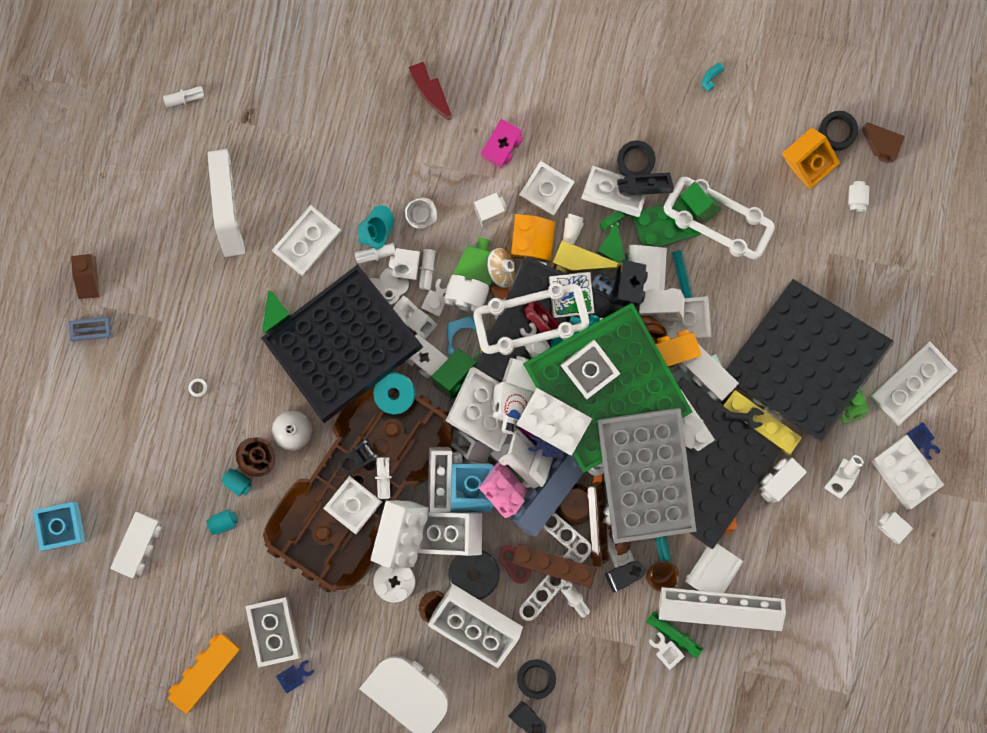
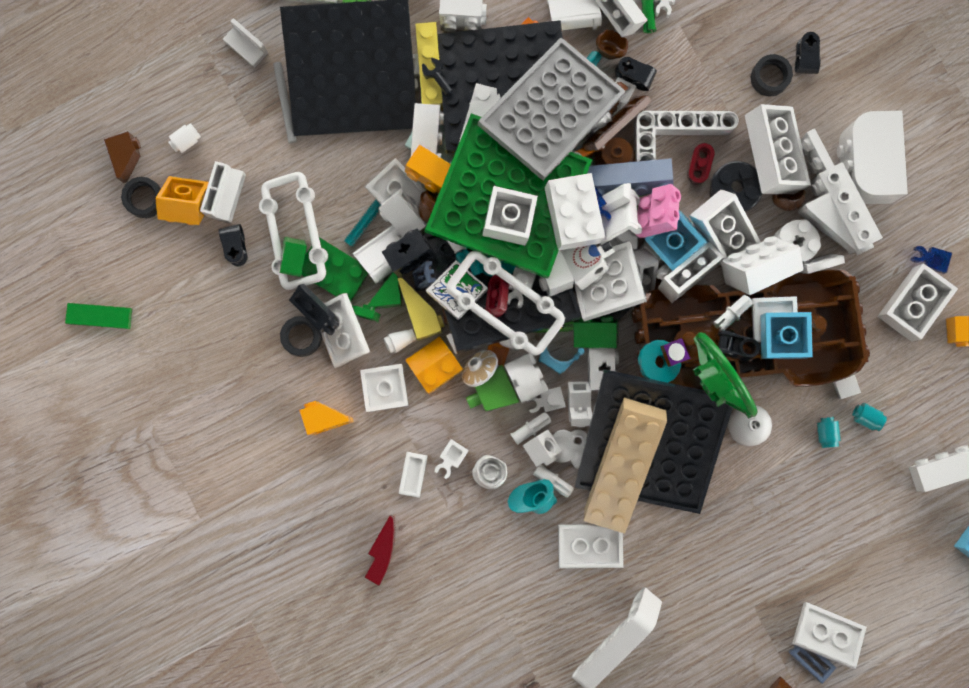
camera: 135 degrees left, 0 degrees up
(96, 355) = (829, 635): none -> white tile
(191, 389) = (789, 530): white piece -> none
(255, 457) = (799, 433): reddish brown cone -> none
(256, 527) = (847, 387): none -> white tile
(274, 312) = (671, 520): green slope -> none
(334, 496) = (786, 335): none -> medium azure brick
(342, 307) = (625, 465): none -> tan brick
(348, 410) = (719, 384): none -> green piece
(363, 585) = (822, 263): none -> white tile
(391, 409) = (675, 352): none -> tile
(398, 624) = (839, 208): none -> white wedge
(455, 196) = (452, 455): none -> white plate
(466, 157) = (413, 474): none -> white tile
(490, 209) = (440, 416): white brick -> none
(503, 132) = (365, 451): dark pink brick -> none
(554, 566) = (678, 128): reddish brown plate -> none
(561, 126) = (322, 418): none -> light orange slope
(575, 599) = (688, 94): white axle -> none
(709, 76) = (189, 333): teal arm -> none
(748, 168) = (234, 241): none -> black piece
(775, 28) = (98, 316): none -> green tile
(792, 191) = (222, 192): none -> white piece
(826, 294) = (284, 102): none -> light grey bar
(895, 300) = (245, 44): none -> white panel

